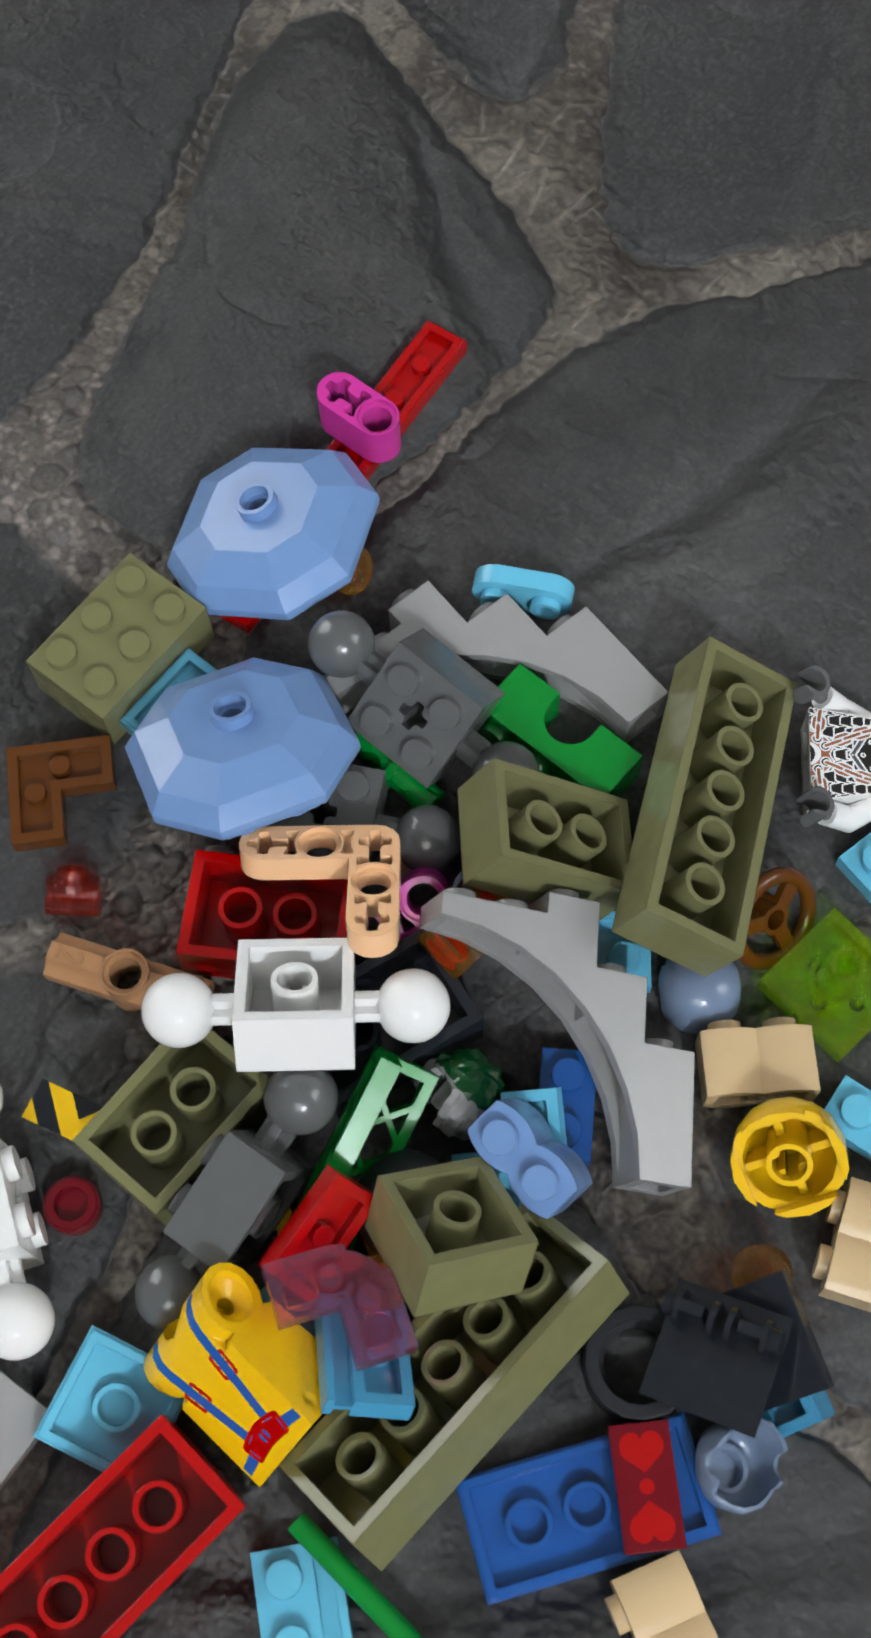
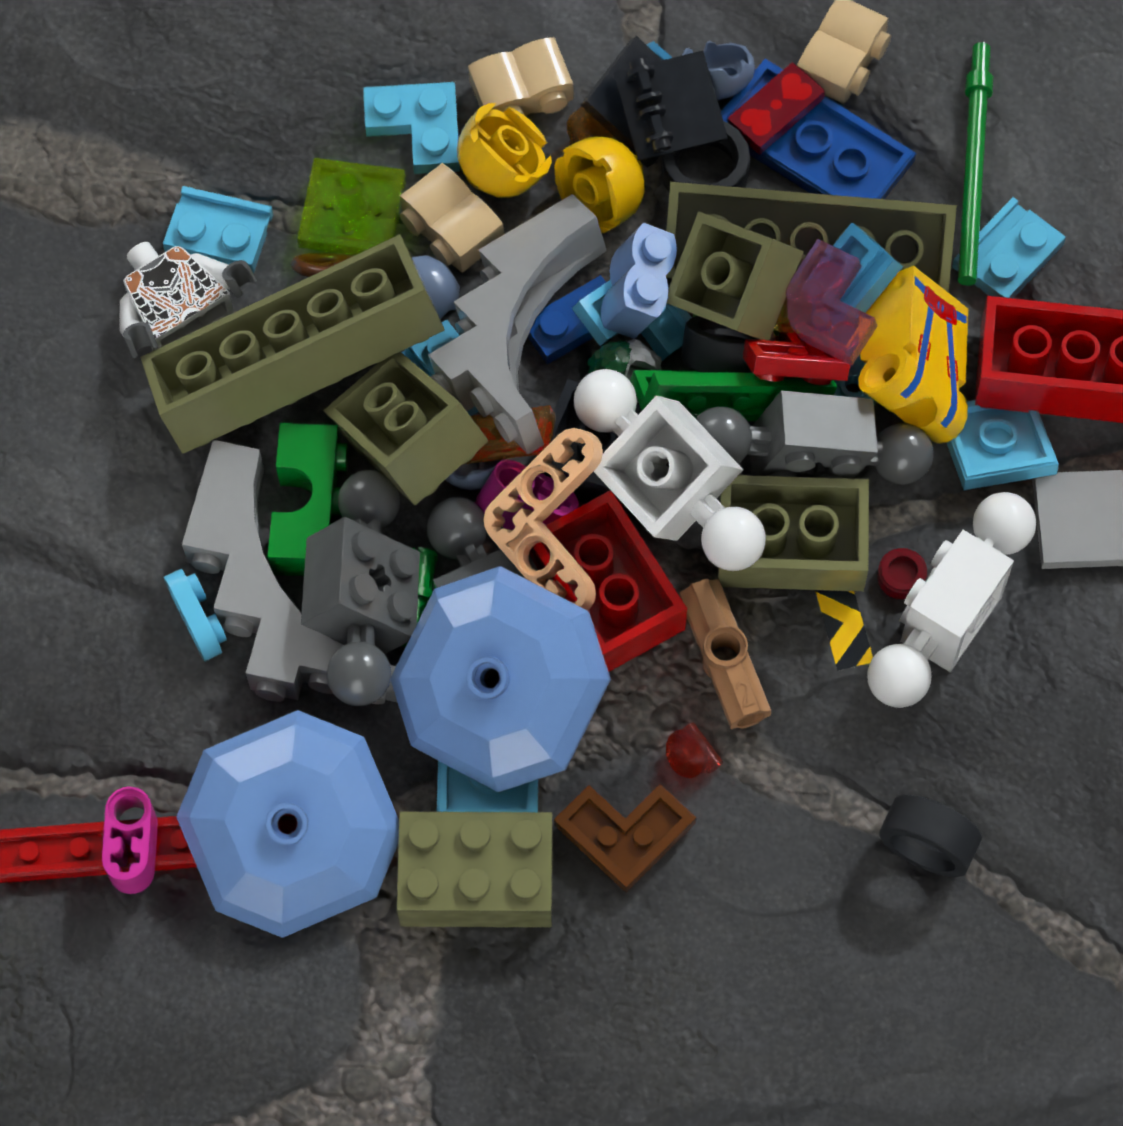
camera: 130 degrees left, 0 degrees up
(687, 1235) = (603, 178): none -> yellow cylinder

